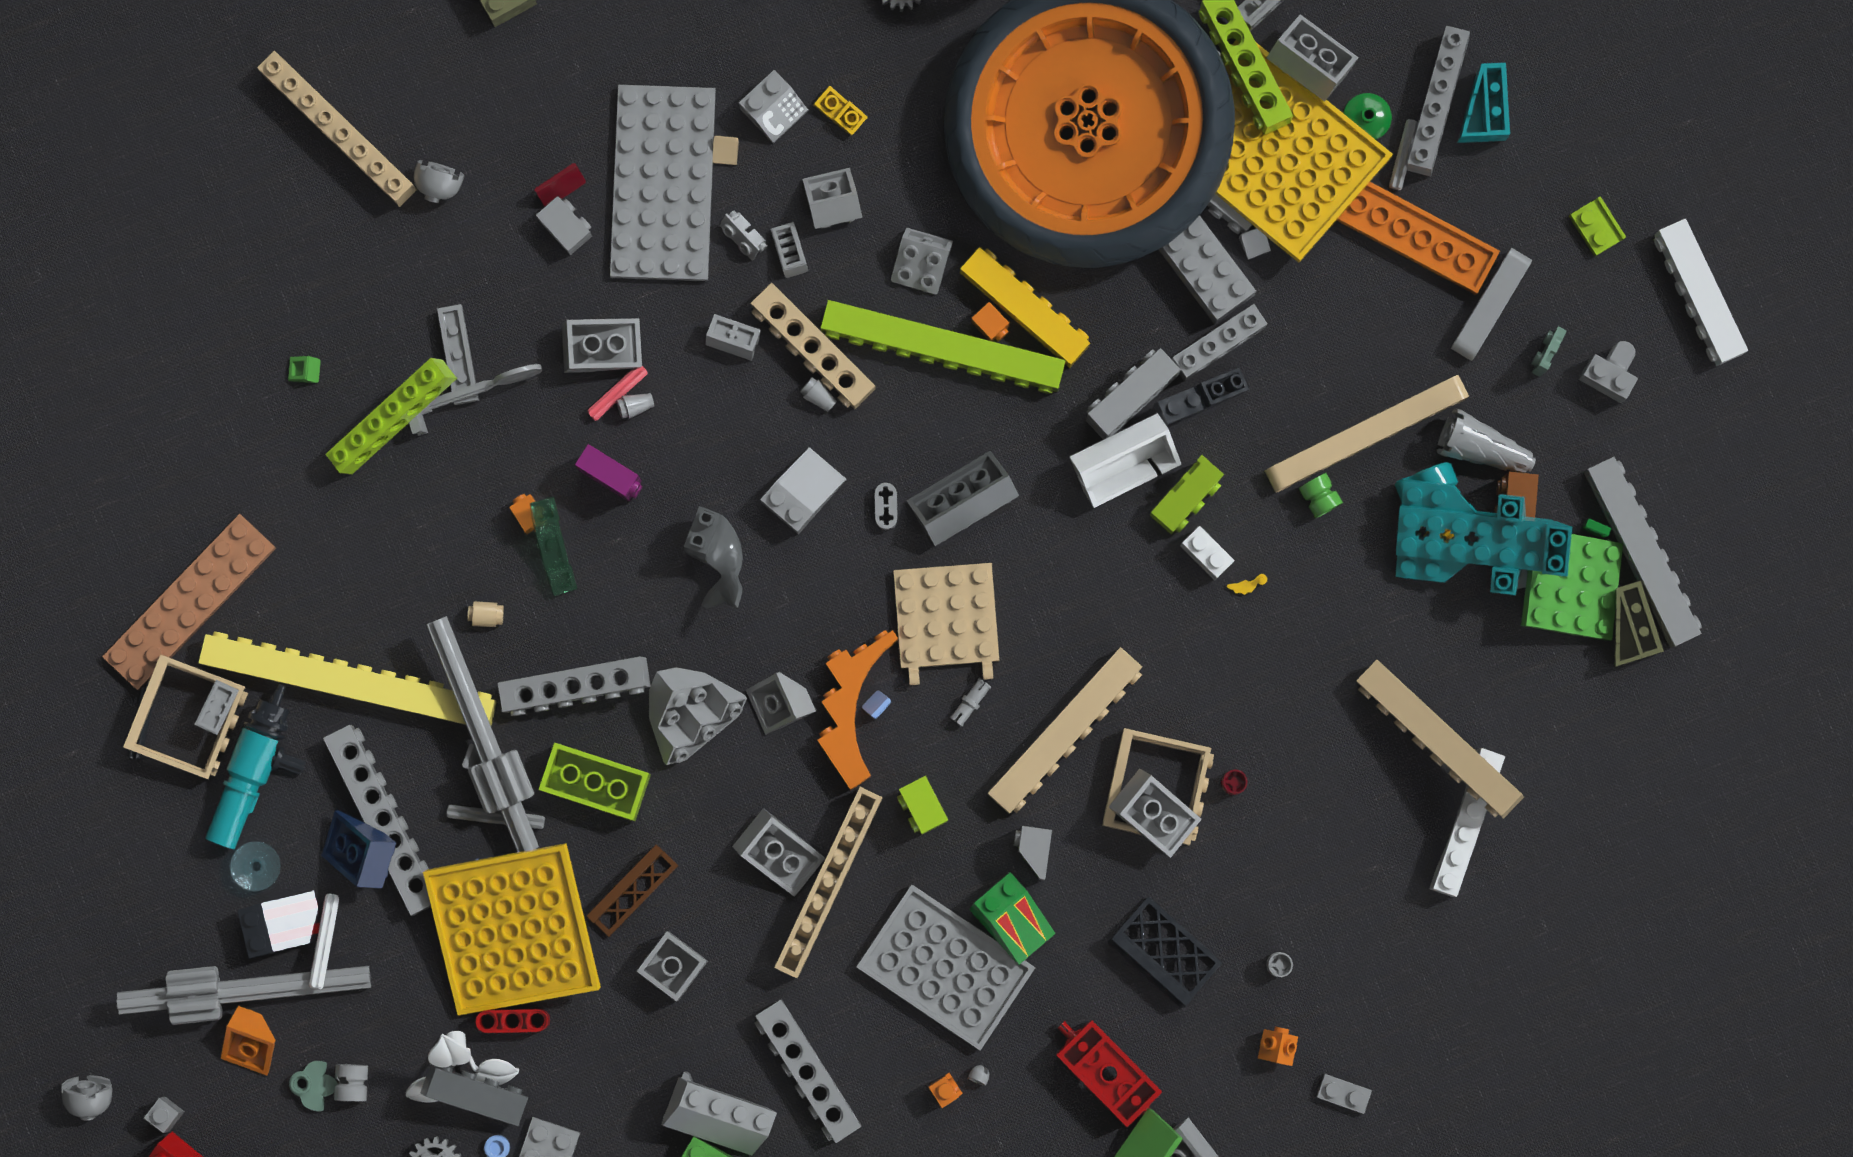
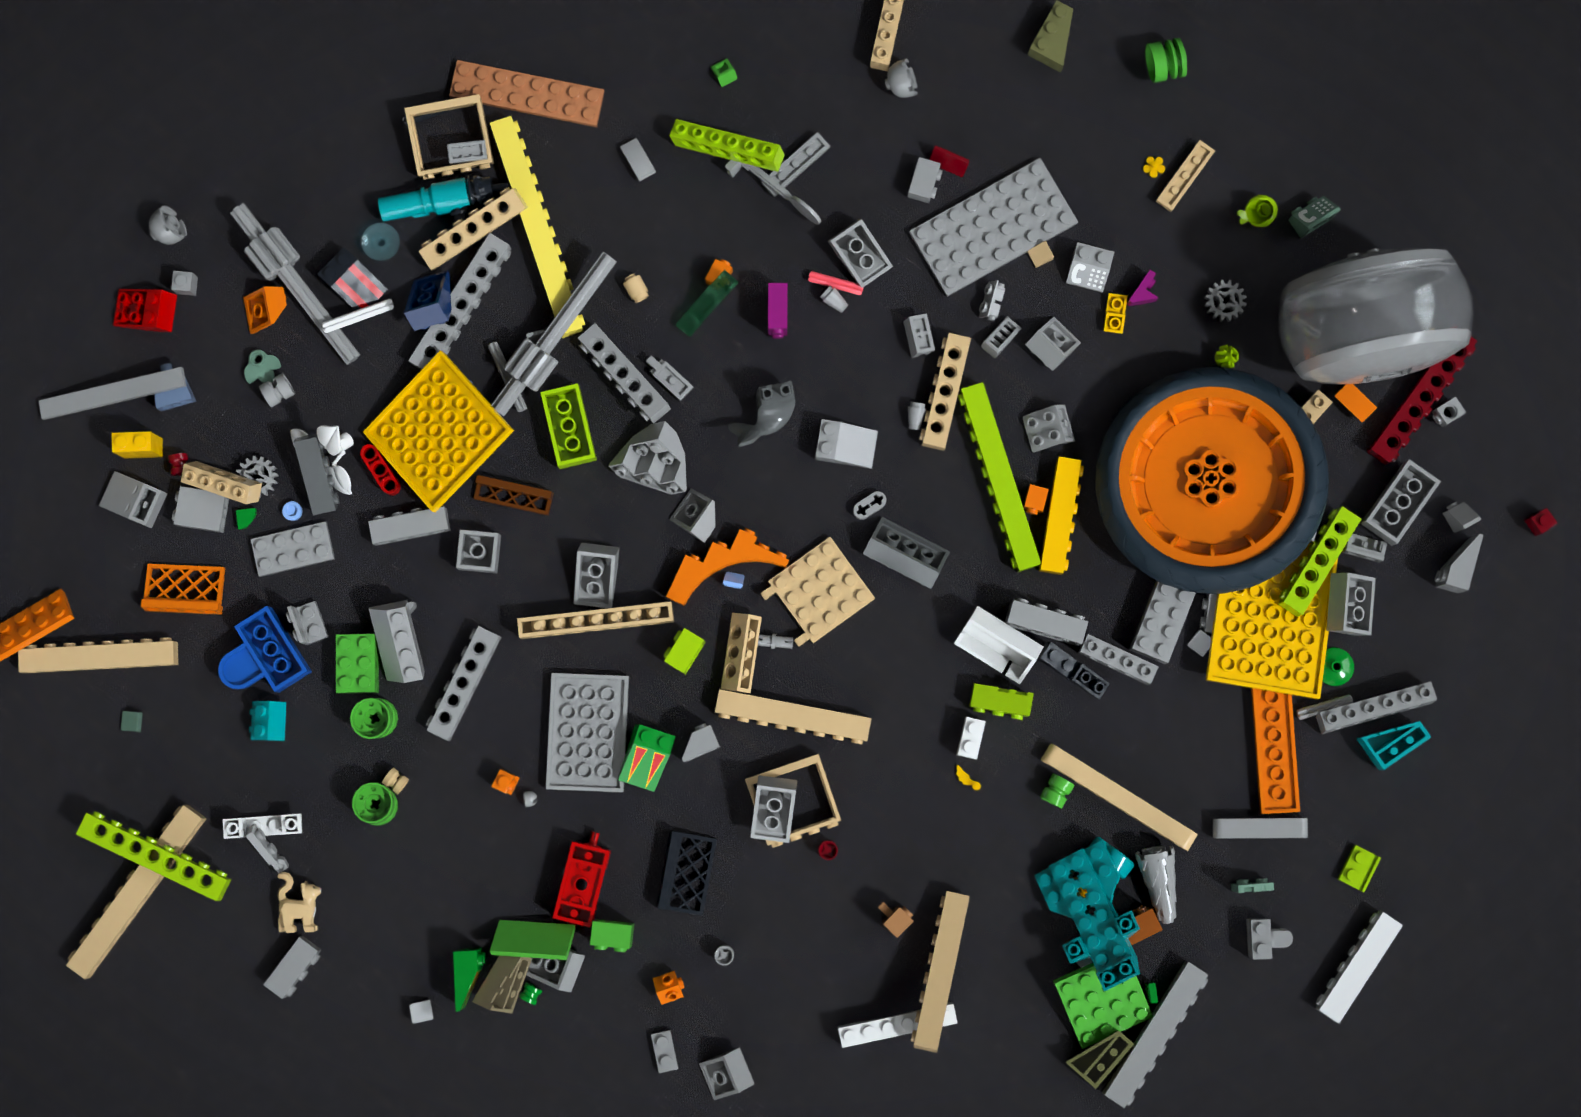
camera: 60 degrees right, 0 degrees up
(314, 816) = (515, 206): none -> tan brick
(342, 524) = (637, 159): none -> light grey slope
(595, 1027) = (408, 526): none -> light grey brick
(609, 638) = (669, 378): none -> light grey hinge
(838, 69) = (1141, 295): none -> magenta slope
(962, 744) = (741, 652): none -> tan brick
(963, 21) = (1226, 356): none -> lime gear
(1184, 1073) = (612, 934): none -> bright green brick
(1355, 753) = (896, 920): none -> medium nougat brick
(1409, 1040) = (726, 1074): none -> light grey slope

